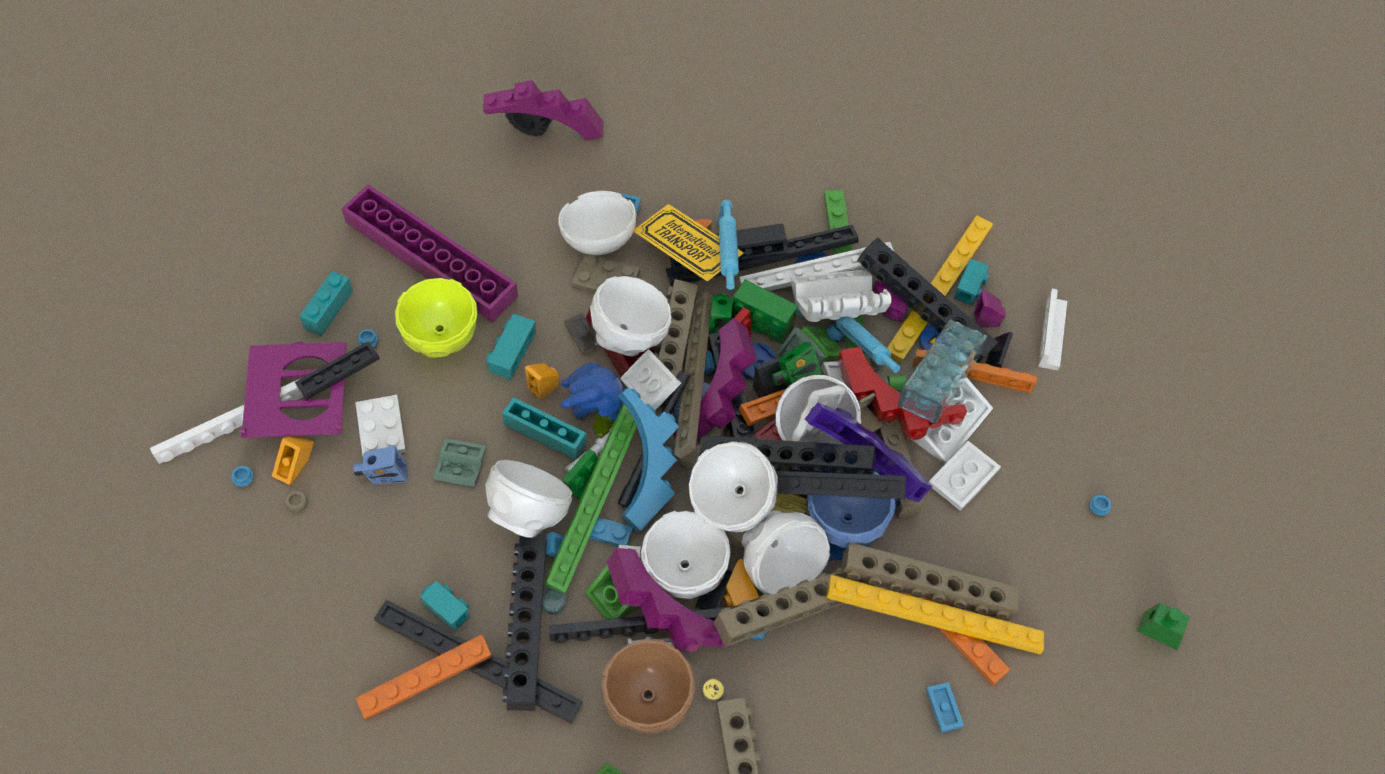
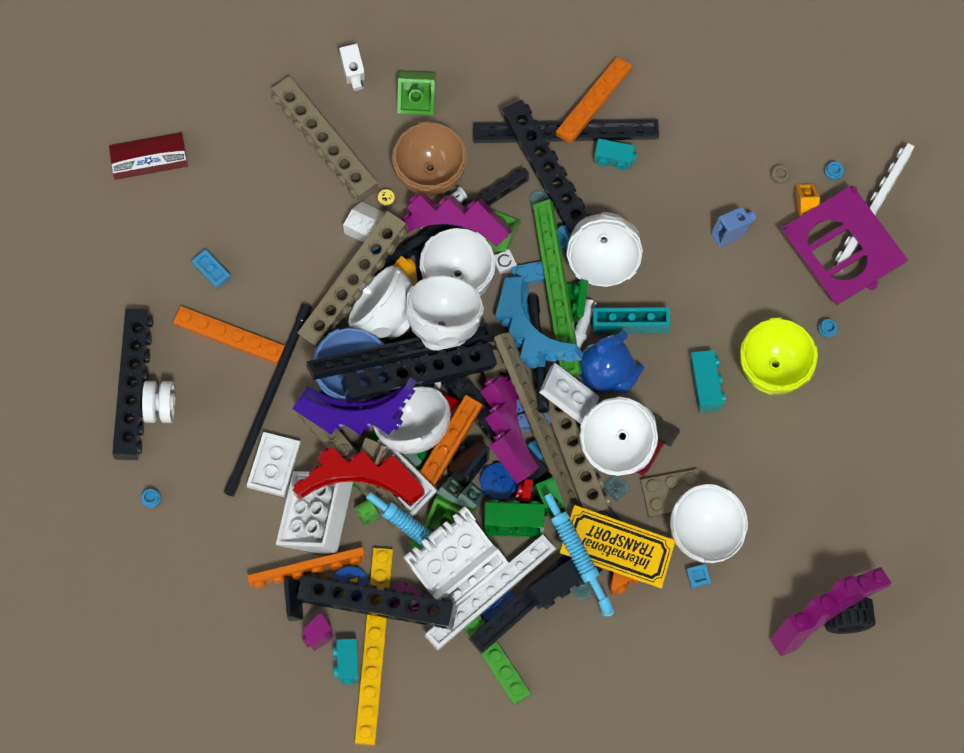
camera: 155 degrees right, 10 degrees up
(326, 303) = (883, 336): teal brick -> none
(337, 370) = (822, 274): black tile -> none
(380, 424) = (762, 263): white plate -> none
(428, 250) = (835, 426): magenta brick -> none
(460, 462) = (680, 267): sand green slope -> none
(541, 379) = (661, 361): light orange slope -> none
(748, 668) = (362, 221): none -> white slope
(796, 365) = (452, 464): green torso -> none
(830, 397) = (413, 413): white plate -> none
(935, 614) = (246, 326): yellow plate -> none
(940, 577) = (196, 363): dark tan brick -> none
(942, 371) = (328, 517): clear light blue brick -> none
(1007, 483) = (235, 478): none -> black piece
(1052, 332) = (252, 649): white fence -> none
(1053, 692) = (133, 319): none -> black brick
(1063, 583) = (158, 401): none -> white wheel
(1164, 625) = (64, 413): green torso -> none

